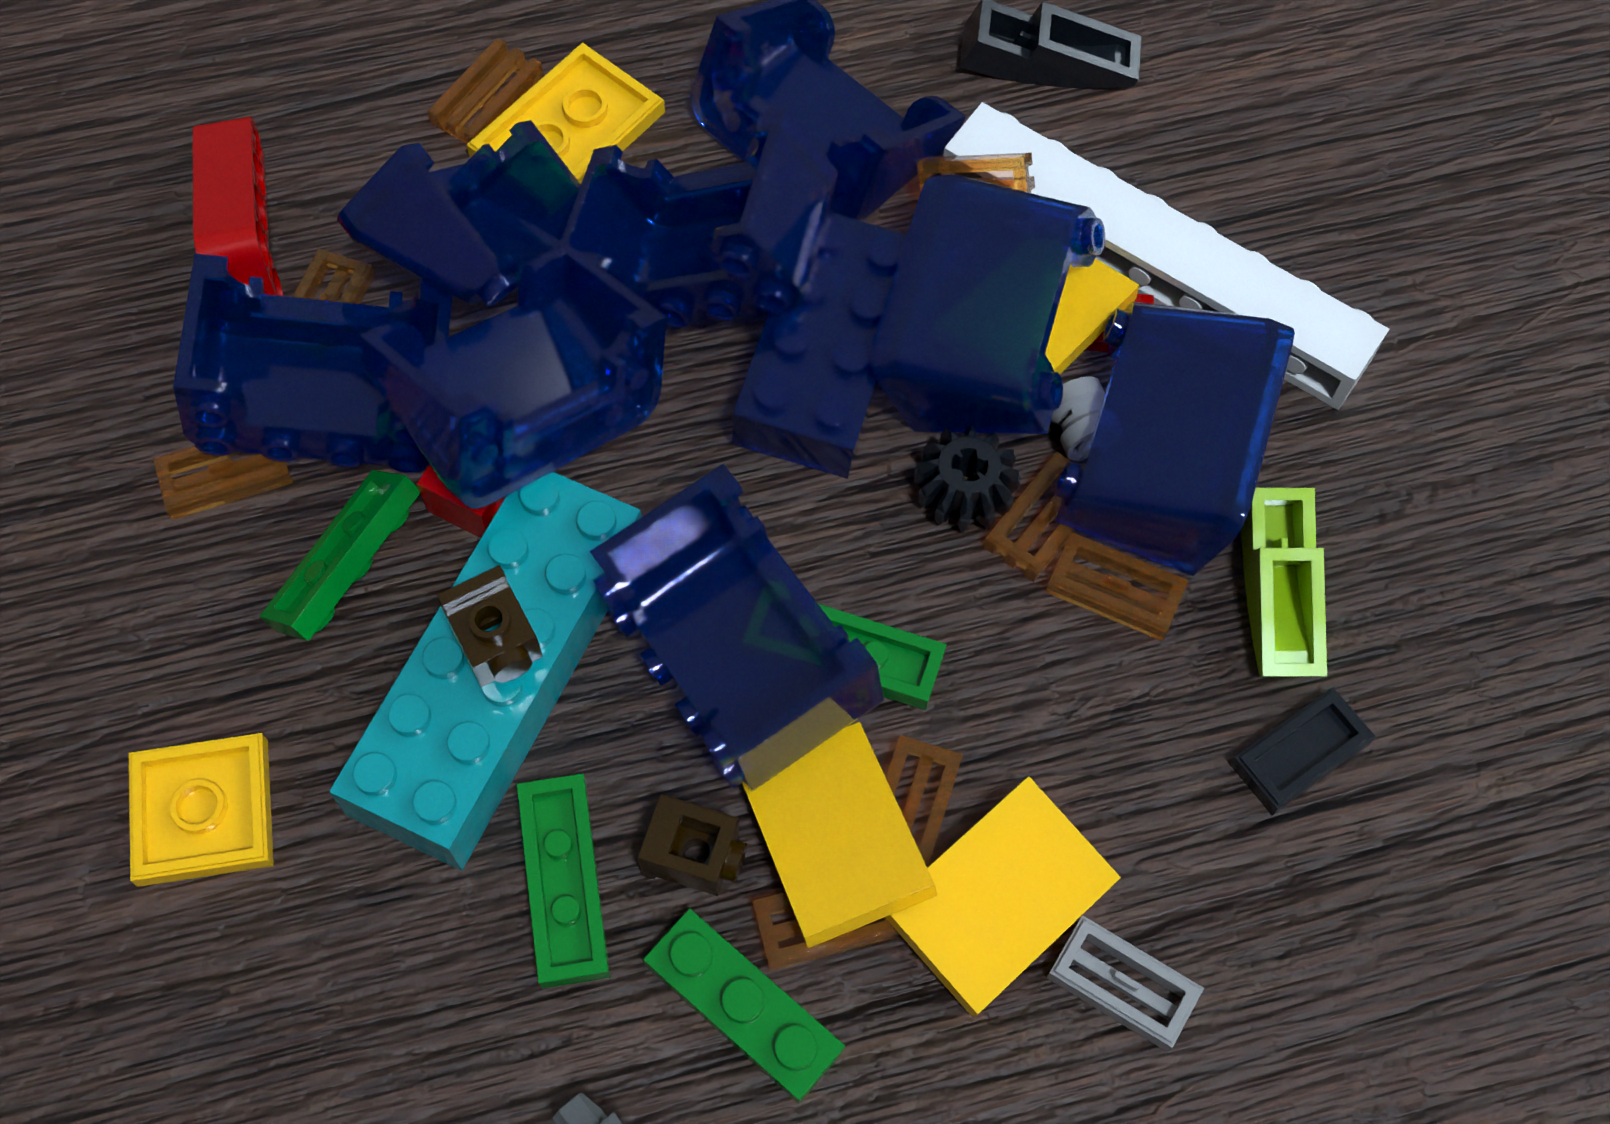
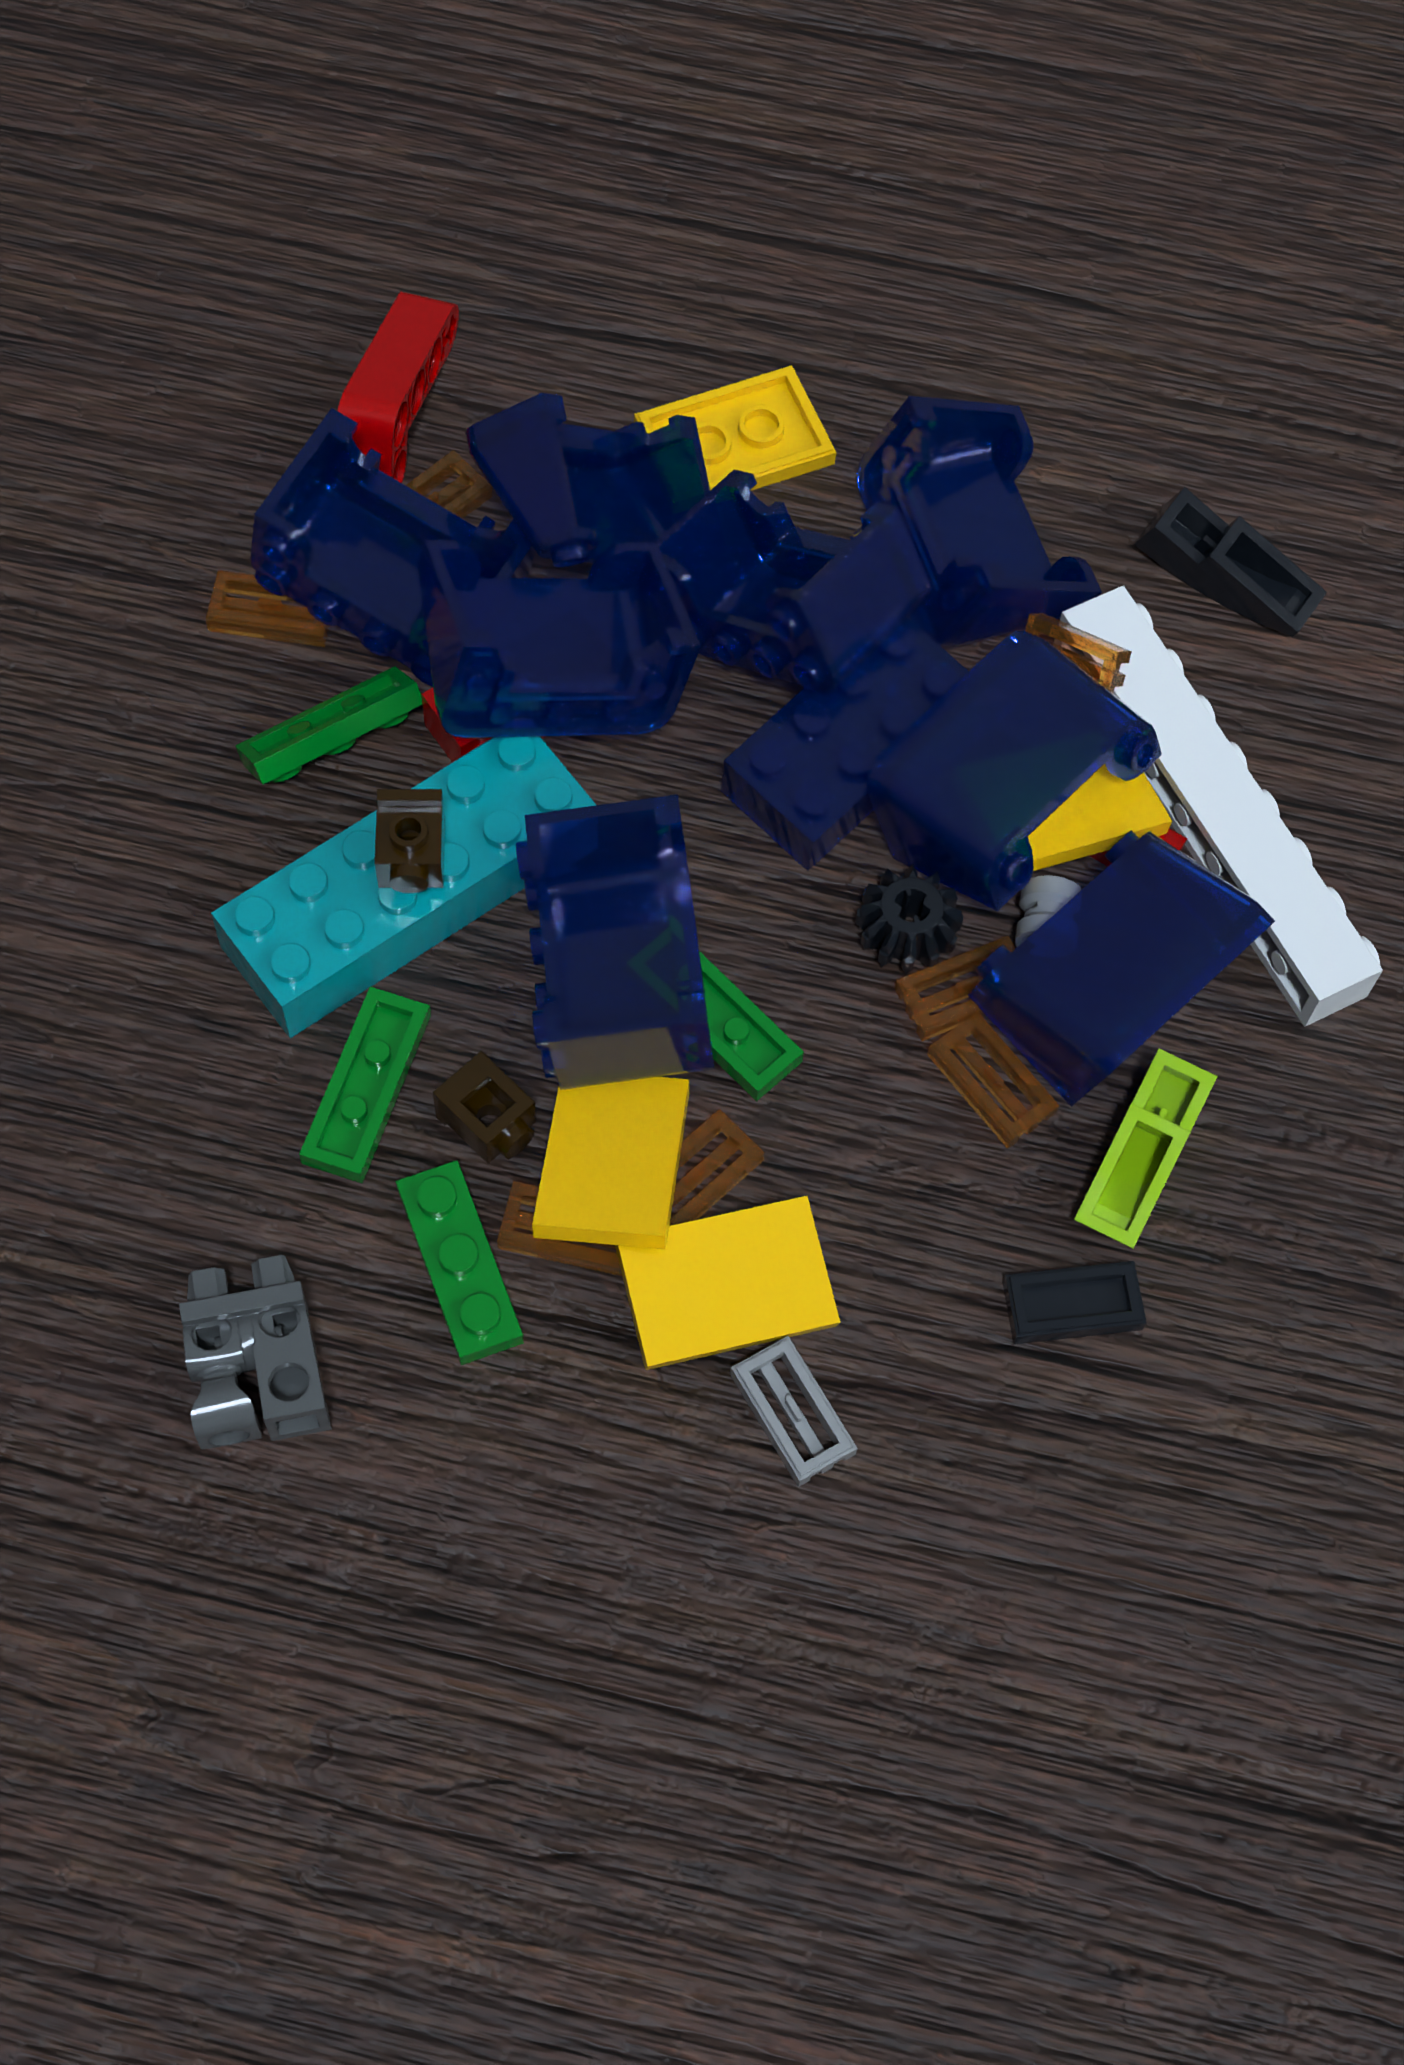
camera: 25 degrees right, 0 degrees up
(200, 810) = (105, 882): yellow tile -> none
(478, 87) = (674, 366): clear orange tile -> none

